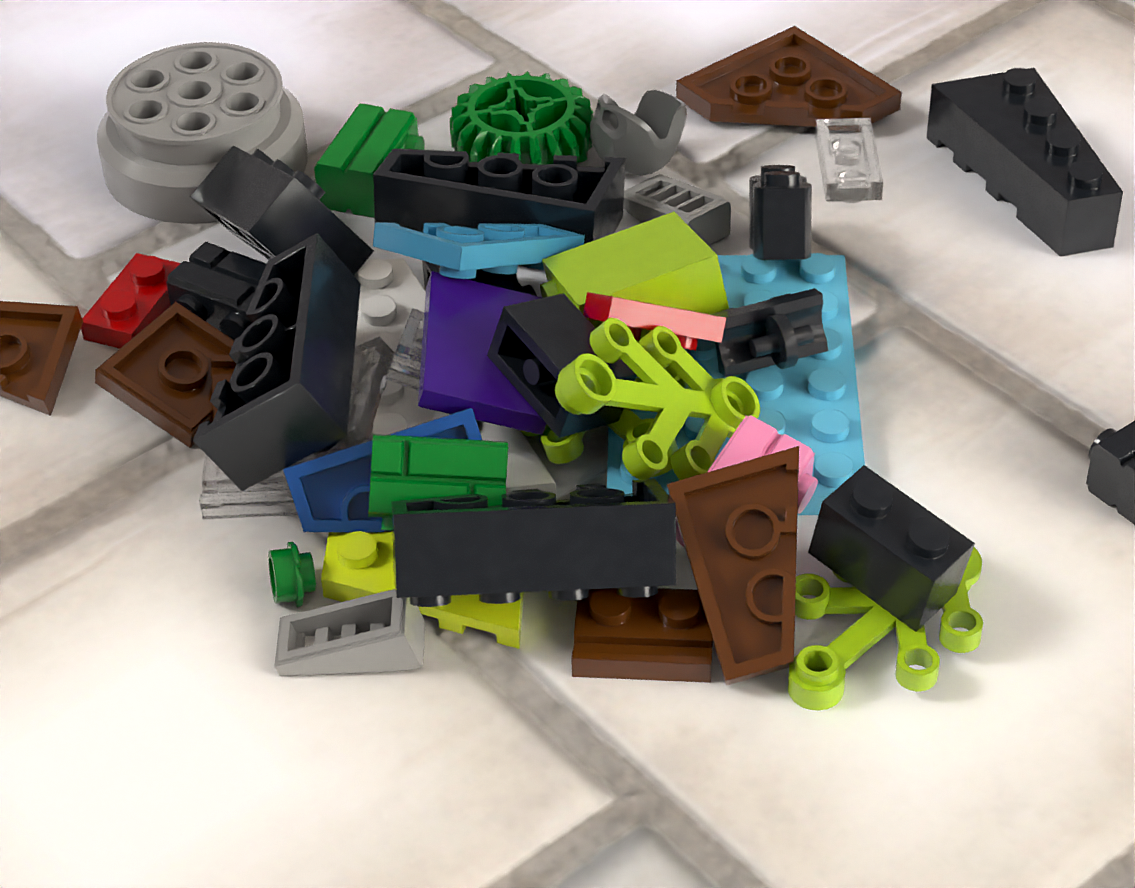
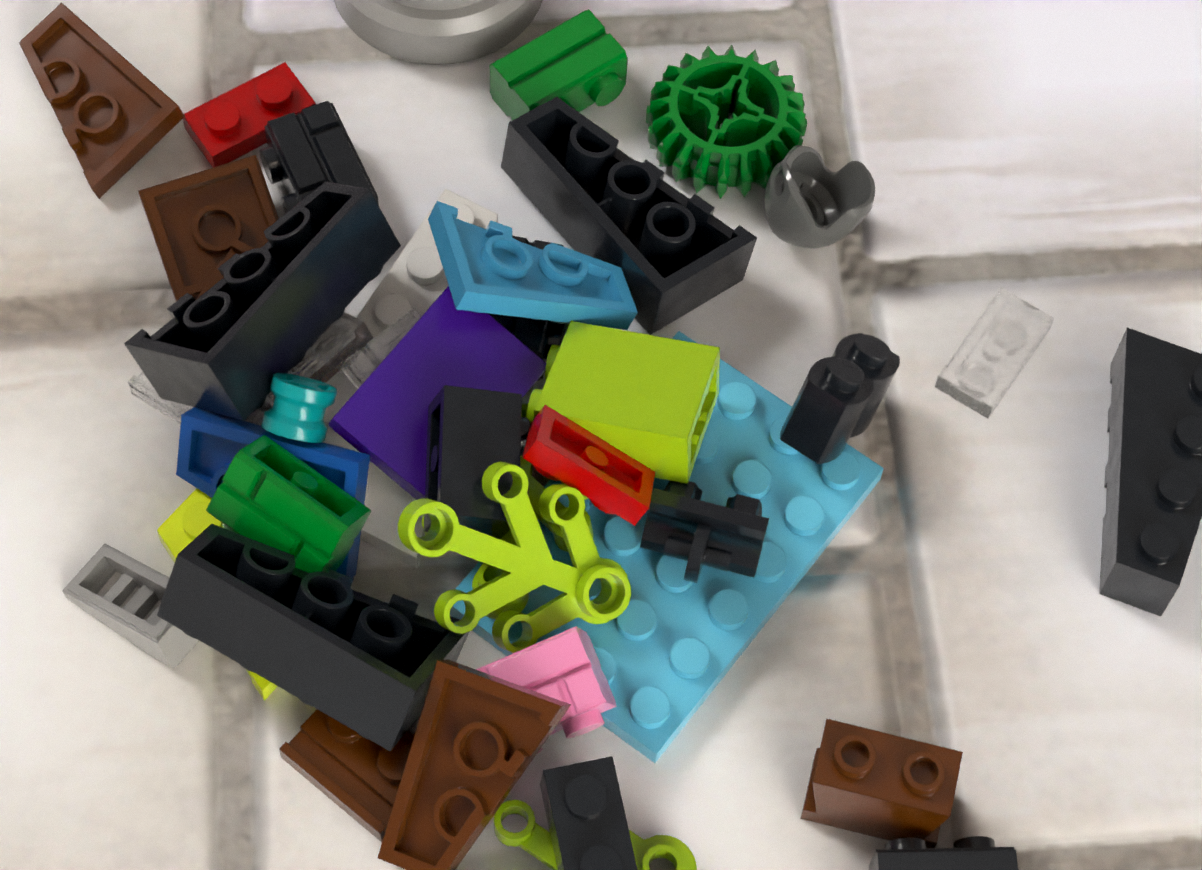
camera: 30 degrees right, 20 degrees up
(274, 207) = (405, 114): black wedge -> none
(291, 574) = (138, 508): green plate -> none
(383, 404) = (299, 408): none -> teal wheel
(701, 210) = (785, 348): light grey slope -> none
(789, 83) = (1025, 220): reddish brown plate -> none
(1049, 410) = (881, 784): none -> reddish brown hips

